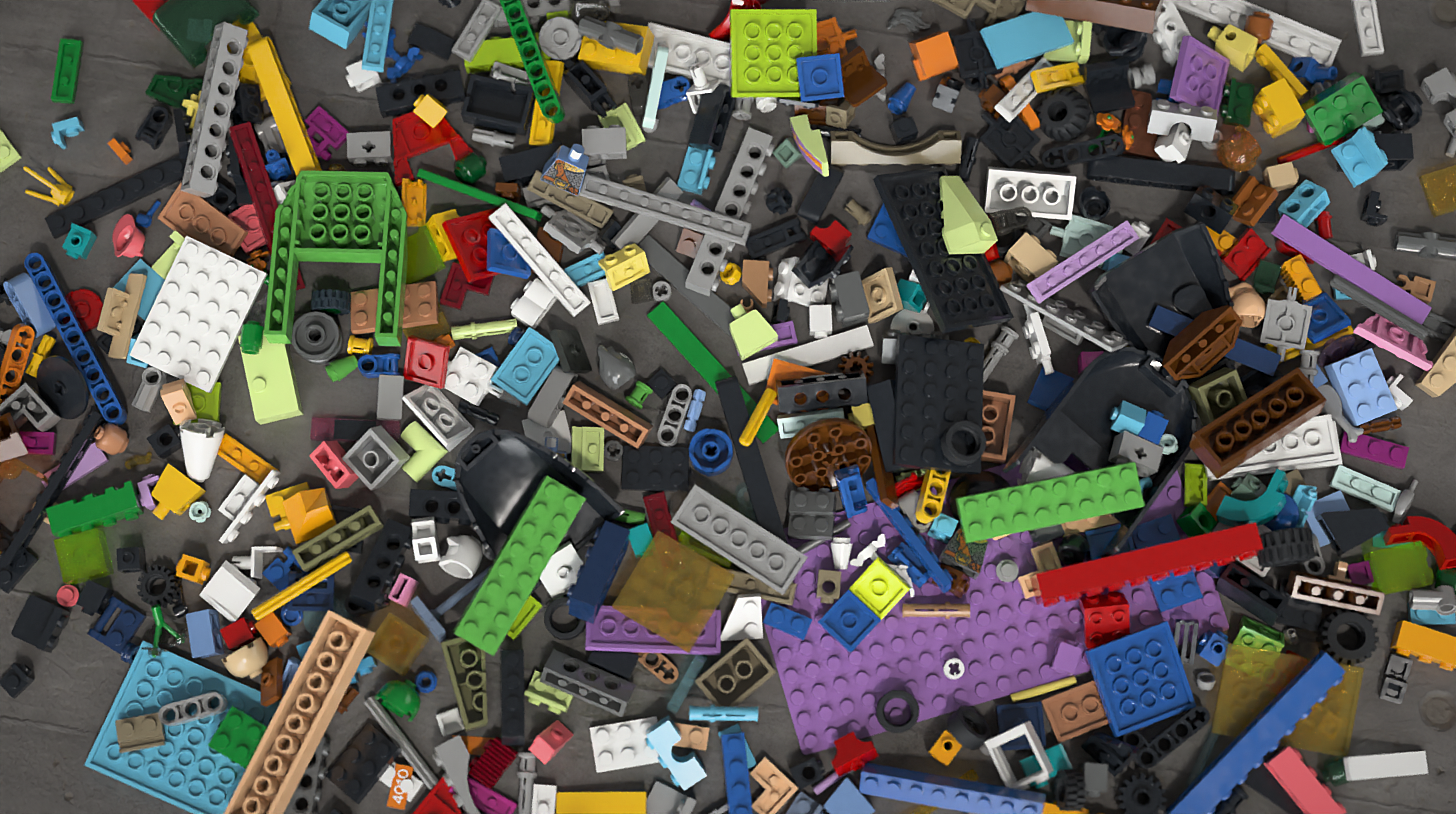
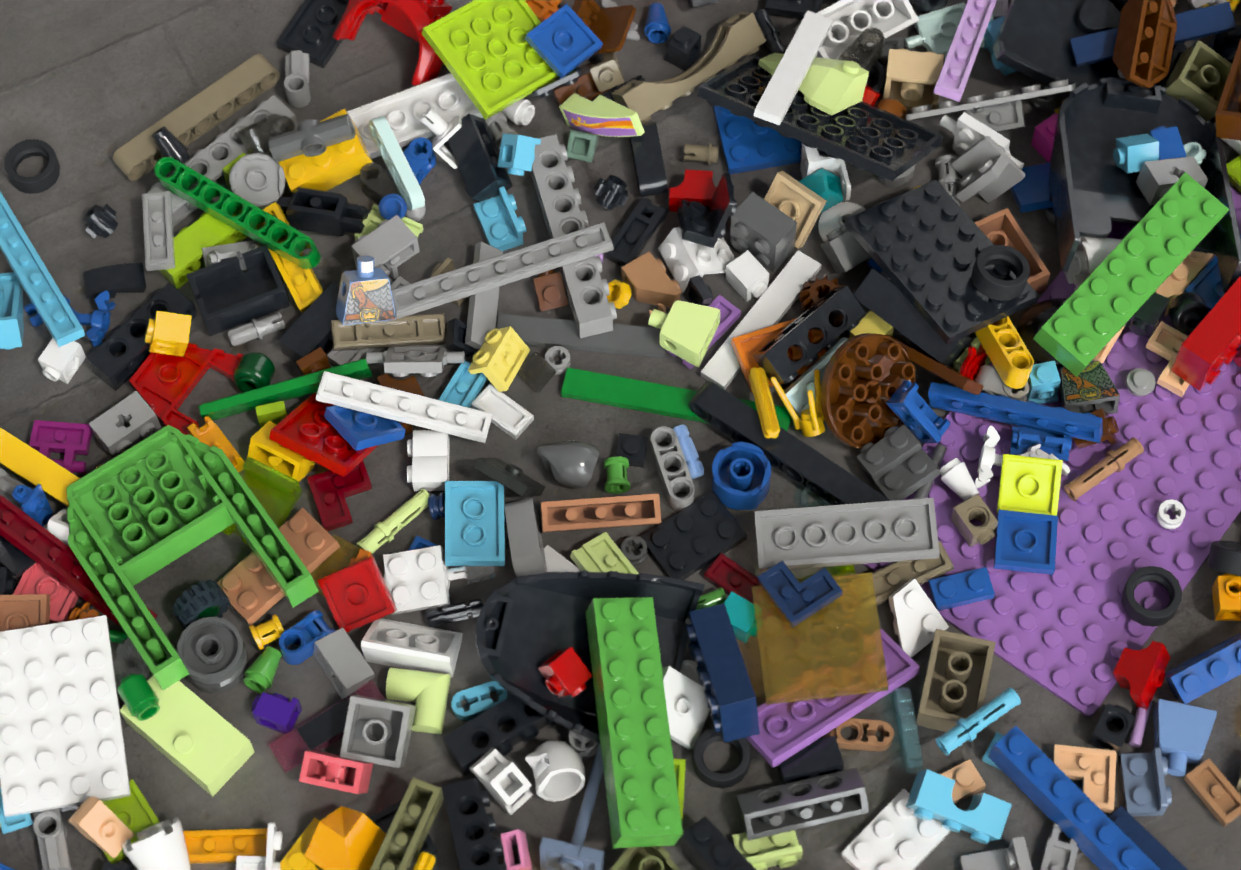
camera: 35 degrees left, 15 degrees down
(330, 400) = (276, 712): none -> dark purple brick
(462, 204) = (271, 412): none -> lime tile
(503, 505) = (565, 673): none -> red brick
(632, 115) = (392, 205): none -> blue plate
(673, 560) = (796, 599): none -> dark blue plate
(735, 134) = (517, 153): none -> medium azure brick
(780, 444) = (811, 419): none -> yellow plant
(948, 204) = (793, 68): none -> white tile
(1022, 360) = (986, 171): none -> light grey bracket

